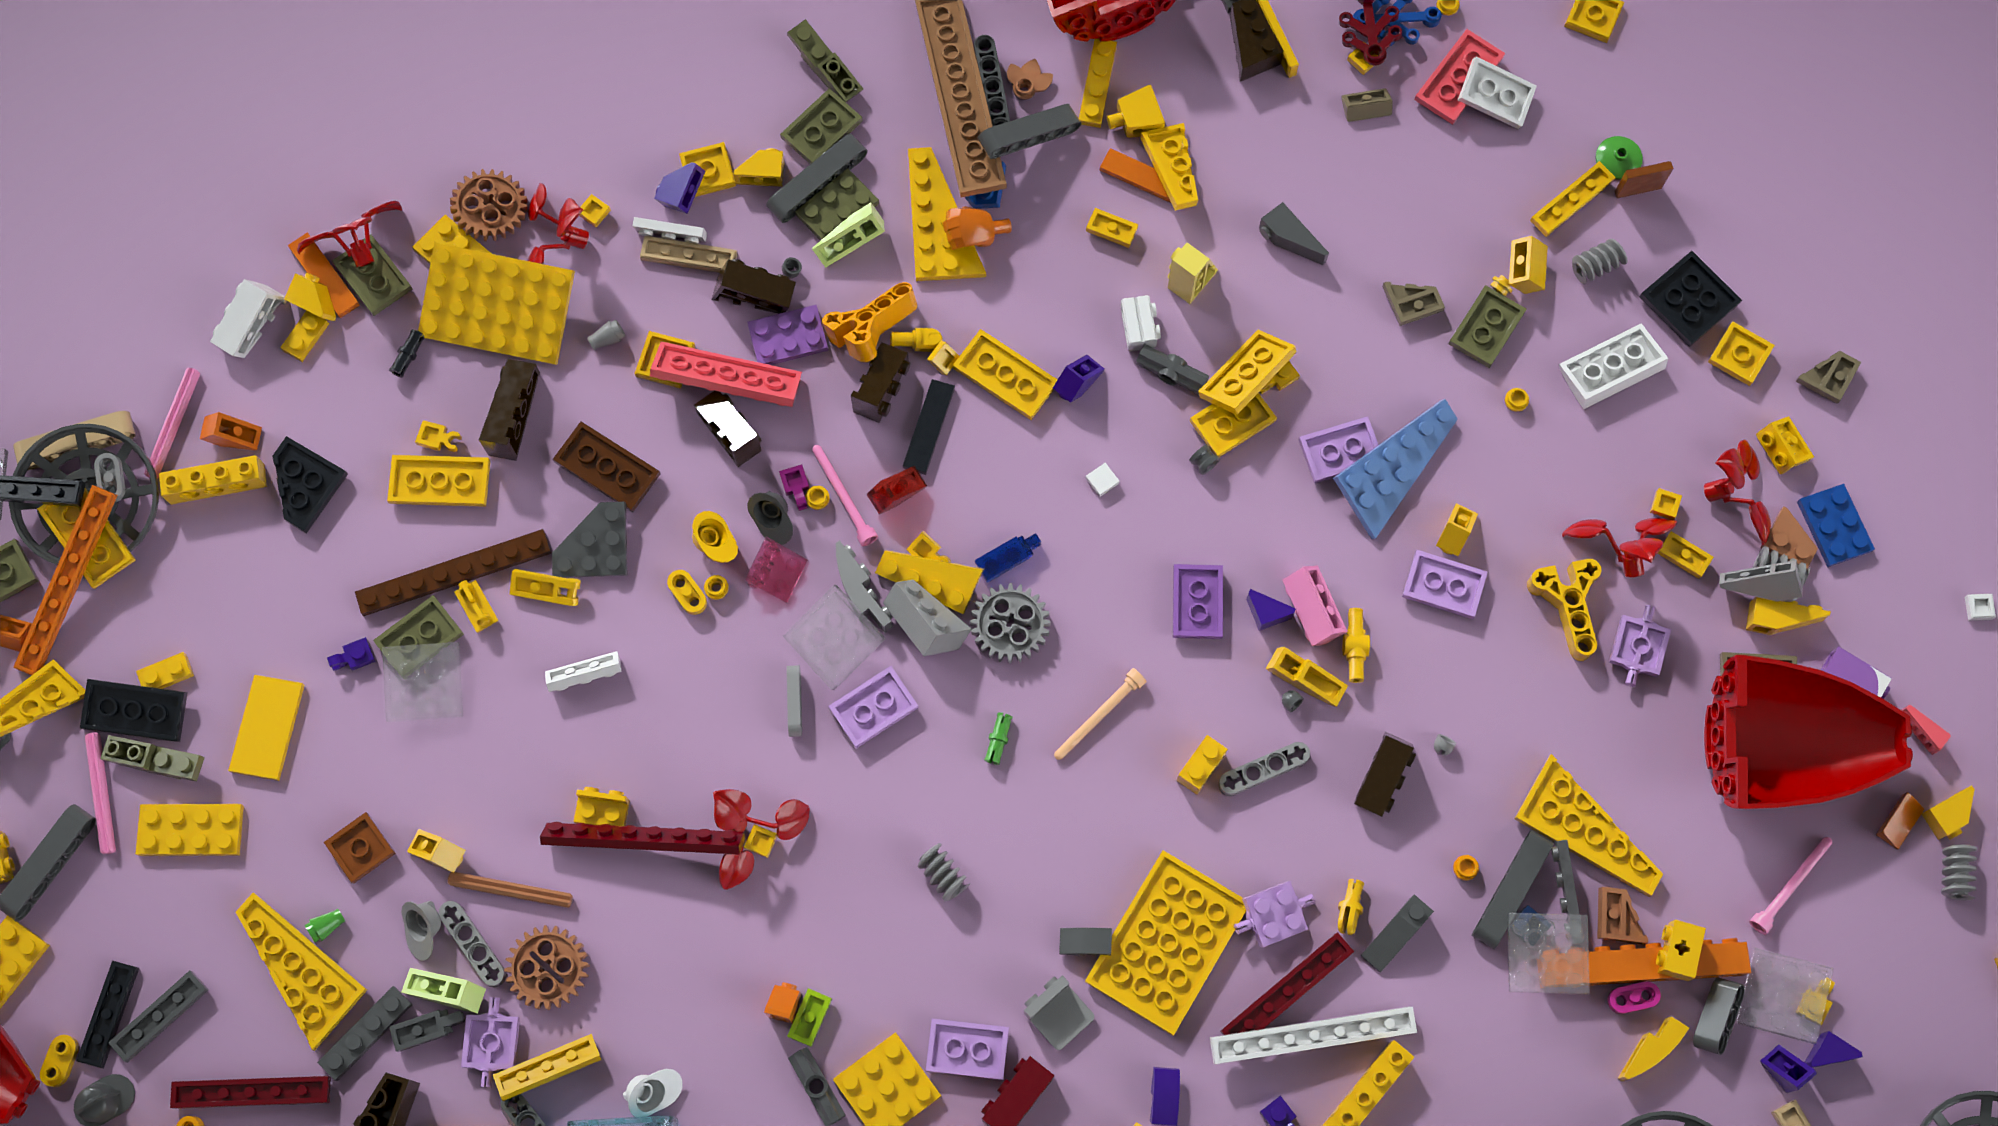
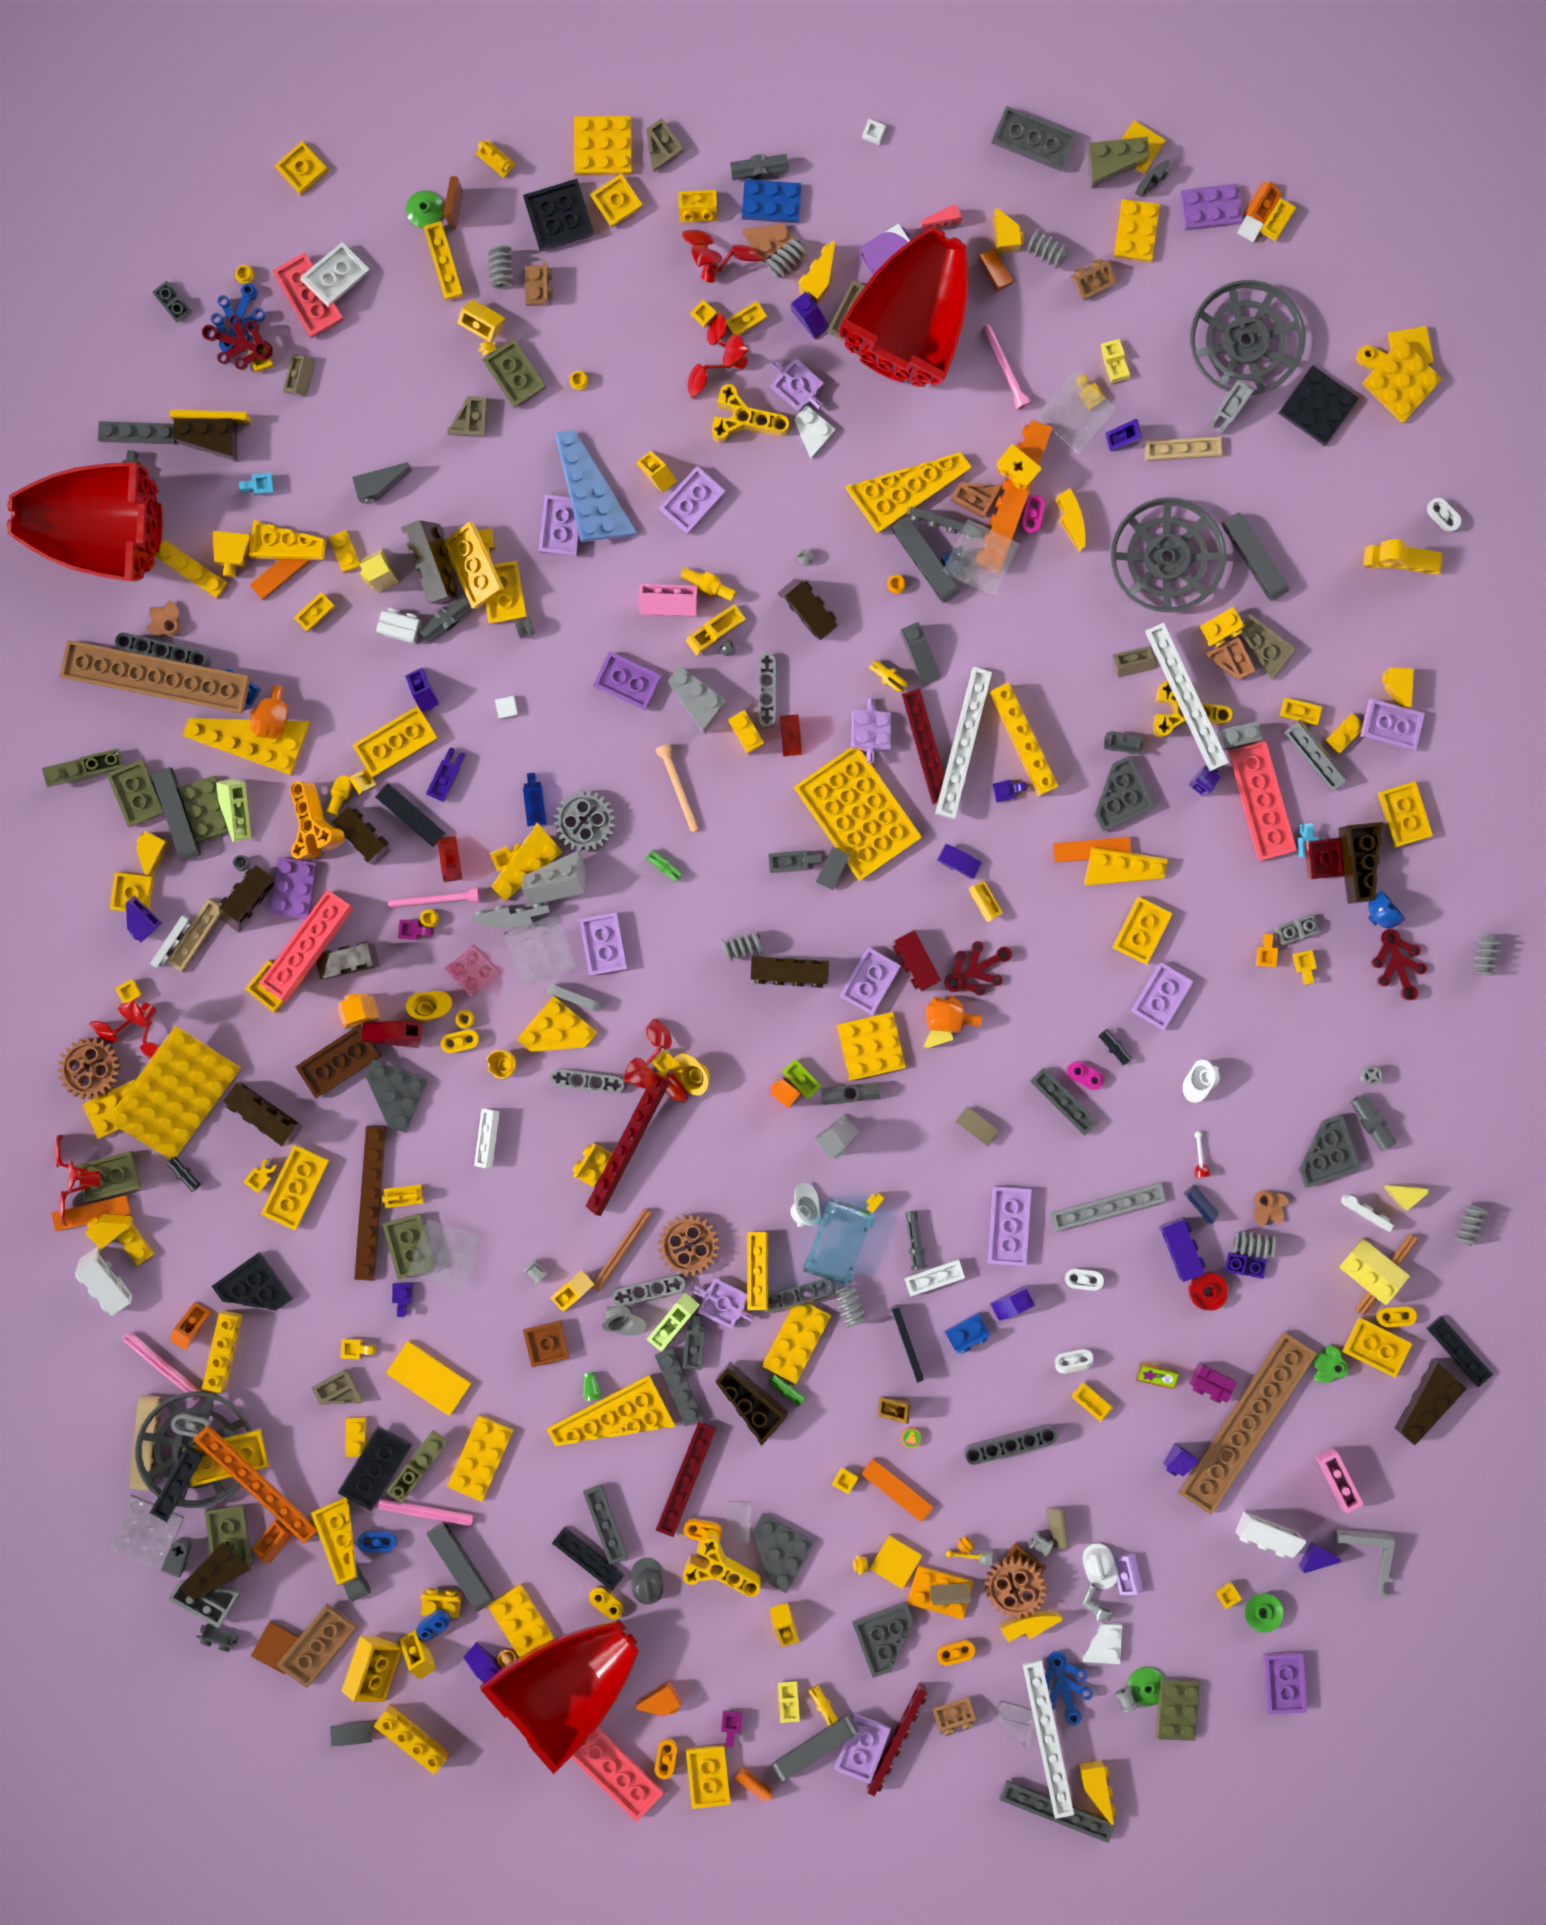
camera: 60 degrees left, 15 degrees up
(43, 752) = (377, 1541): none -> blue plate
(214, 628) = (337, 1390): none -> dark tan wing
(269, 626) = (353, 1349): none -> yellow plate
(443, 796) = (535, 1271): none -> light grey bush
(544, 587) = (411, 1141): yellow plate -> none
(606, 335) = (234, 1021): light grey cone -> none
(664, 512) = (394, 1033): none -> dark red slope
(674, 458) = (357, 1010): none -> light orange wedge
(679, 650) = (501, 1064): none -> yellow hair
(696, 761) = (587, 1079): none -> light grey beam
(748, 697) = (556, 1029): none -> yellow plate
(753, 1090) = (837, 1137): none -> light grey wedge
(759, 878) = (691, 1073): none -> yellow piece
(771, 517) = (430, 958): dark grey piece -> none
(936, 943) = (789, 970): none -> dark brown wedge
(991, 445) = (445, 776): none -> dark purple hinge
(1029, 131) = (211, 639): dark grey beam -> none
(1058, 1013) = (873, 908): light grey bracket -> none
(1072, 889) = (792, 861): none -> dark grey hinge
(1197, 229) = (344, 551): none -> yellow plate
(1215, 689) = (696, 697): none -> light grey wedge
(1223, 819) = (790, 735): none -> clear red slope
(1225, 113) = (260, 483): none -> medium azure plate
(1231, 325) = (431, 560): none -> wedge
(1268, 611) = (656, 635): dark purple slope -> none
(1597, 688) = (813, 430): none -> white wing
(1599, 310) = (537, 285): none -> medium nougat bracket
(1613, 366) = (584, 297): white slope -> none
(1716, 205) = (494, 158): none -> yellow hinge
(1718, 1016) = (1070, 463): dark grey beam -> none
(1729, 624) = (809, 315): none -> dark purple slope
(1769, 582) = (793, 272): light grey slope -> none
(1794, 313) = (602, 145): none -> yellow plate
(1831, 1050) = (1125, 401): dark purple slope -> none
(1867, 494) = (759, 167): none -> dark grey piece
(1871, 1017) = (1114, 361): none -> light yellow slope
(1956, 945) = (1093, 278): none -> medium nougat bracket

